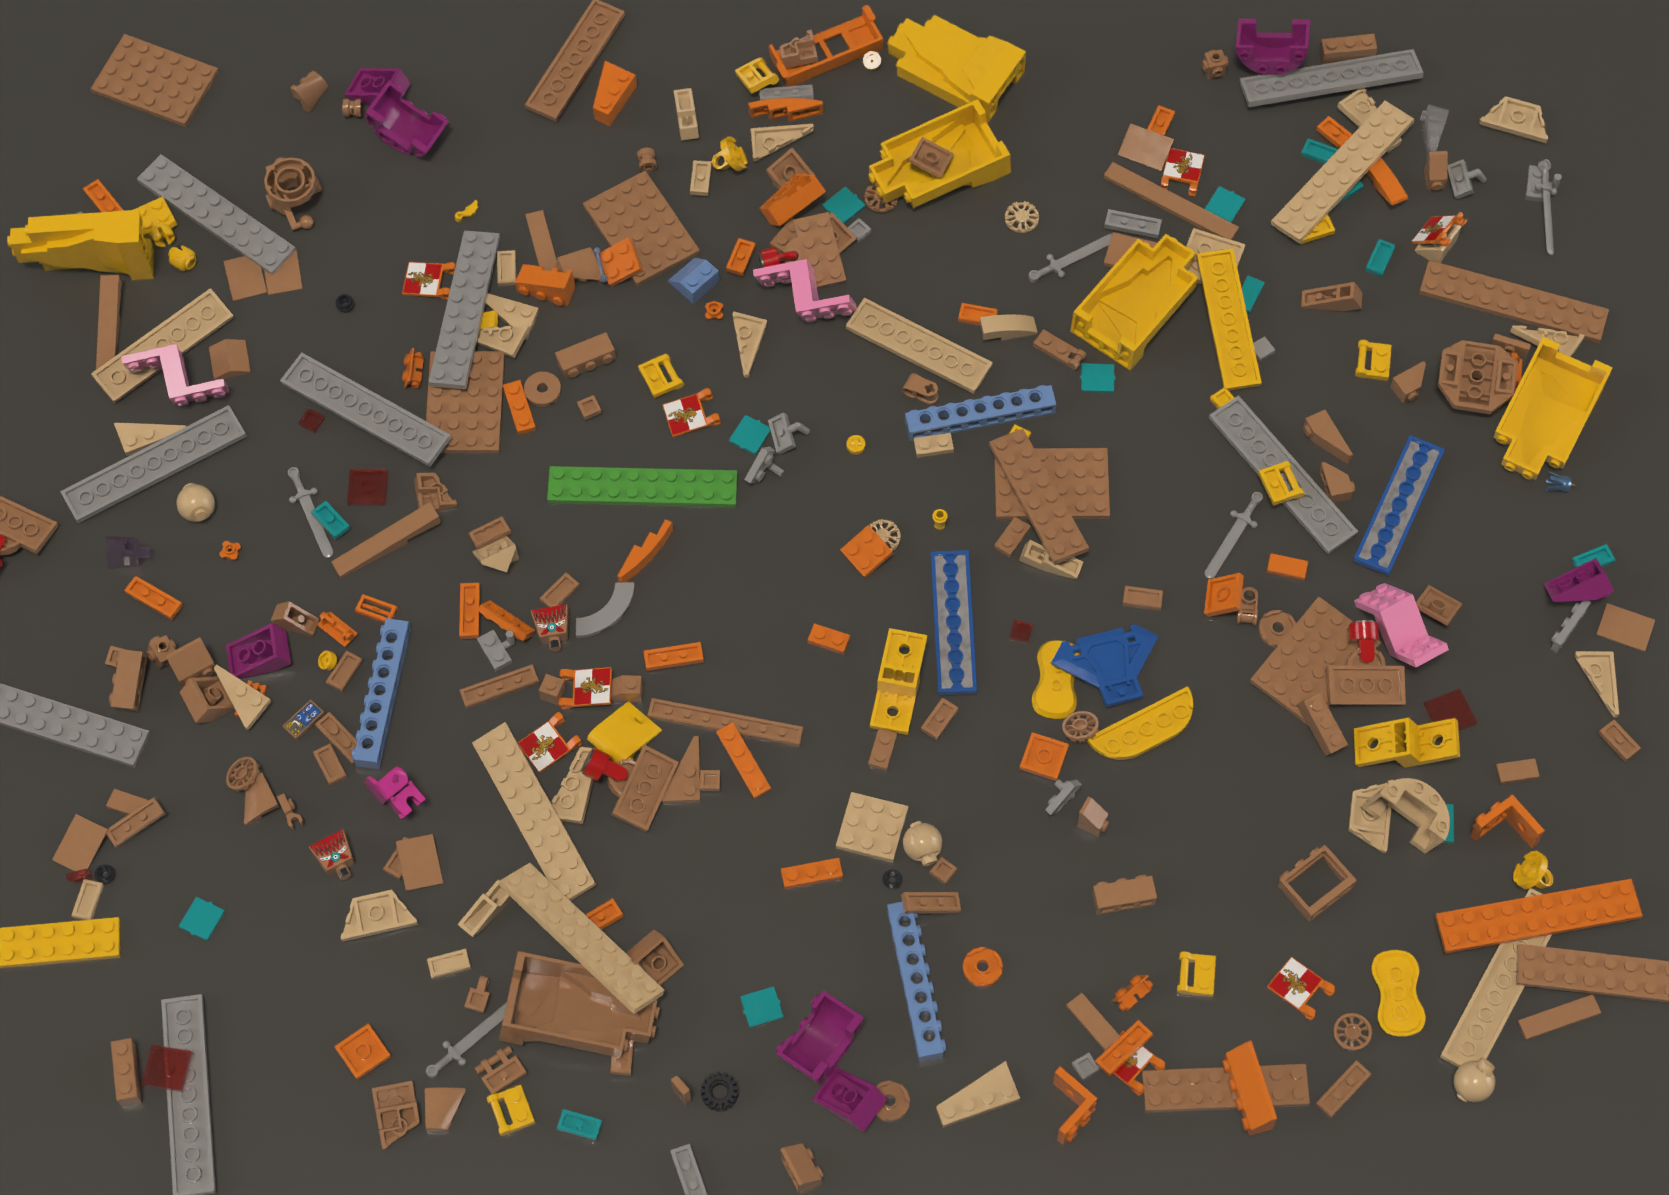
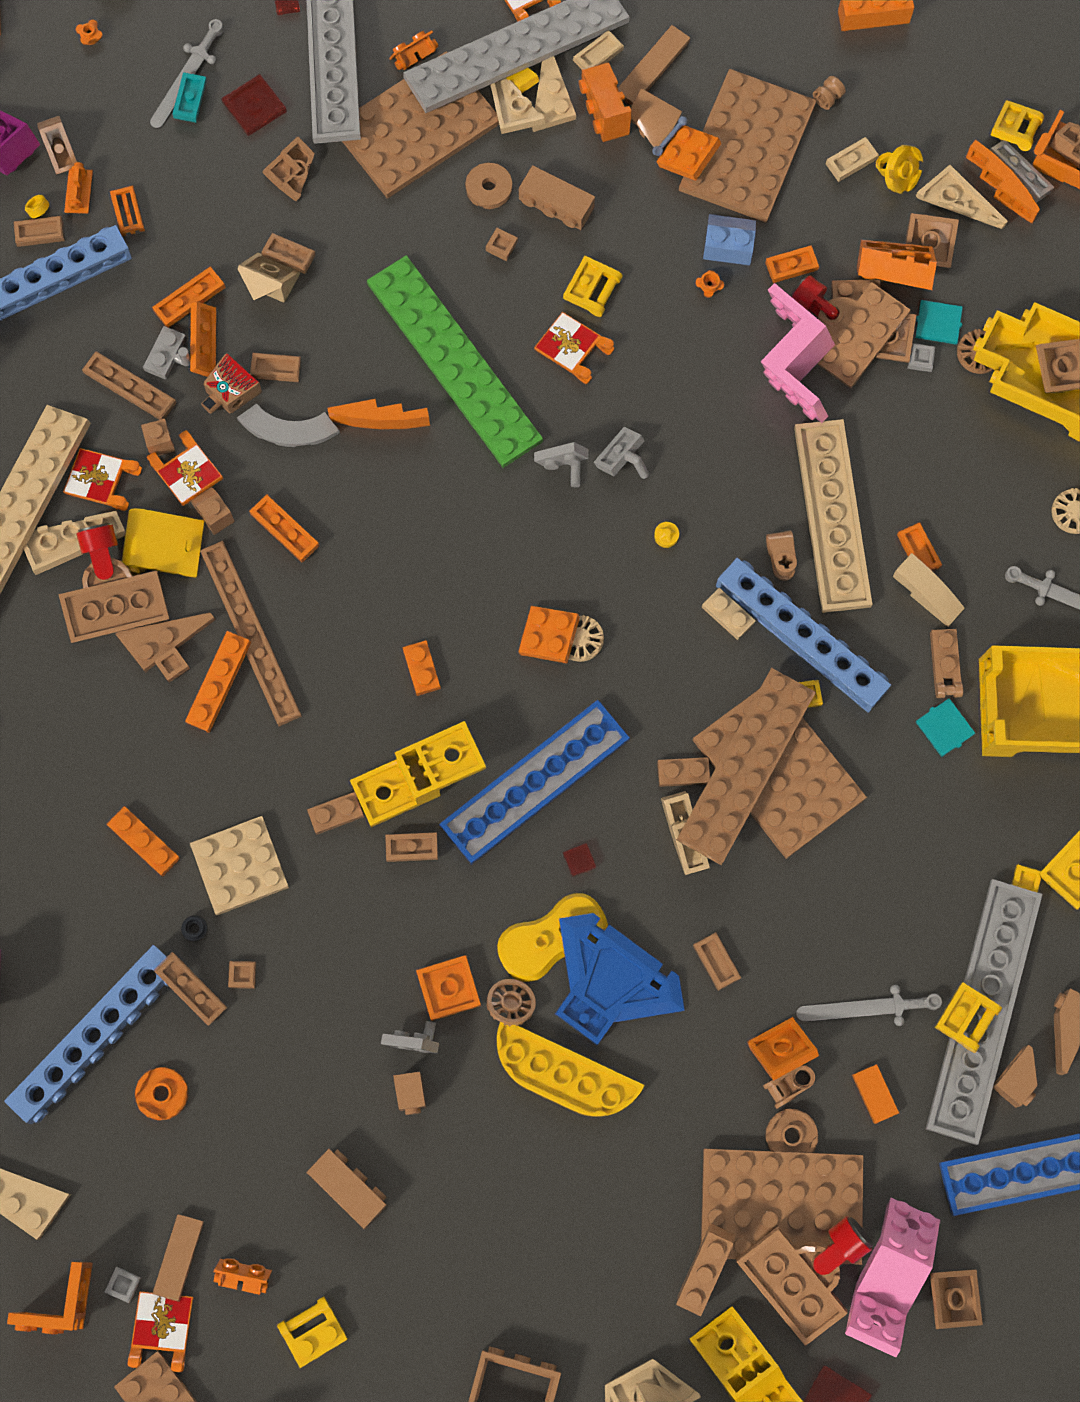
camera: 50 degrees right, 10 degrees up
(387, 540) = (207, 165): medium nougat slope -> none
(519, 407) = (450, 179): orange plate -> none
(686, 114) = (914, 91): tan slope -> none
(749, 337) = (710, 337): tan wing -> none
(750, 434) = (596, 421): teal piece -> none
(922, 843) = (253, 931): tan brick -> none
(939, 517) = (645, 676): yellow pin -> none
(1124, 1048) = (166, 1313): orange plate -> none

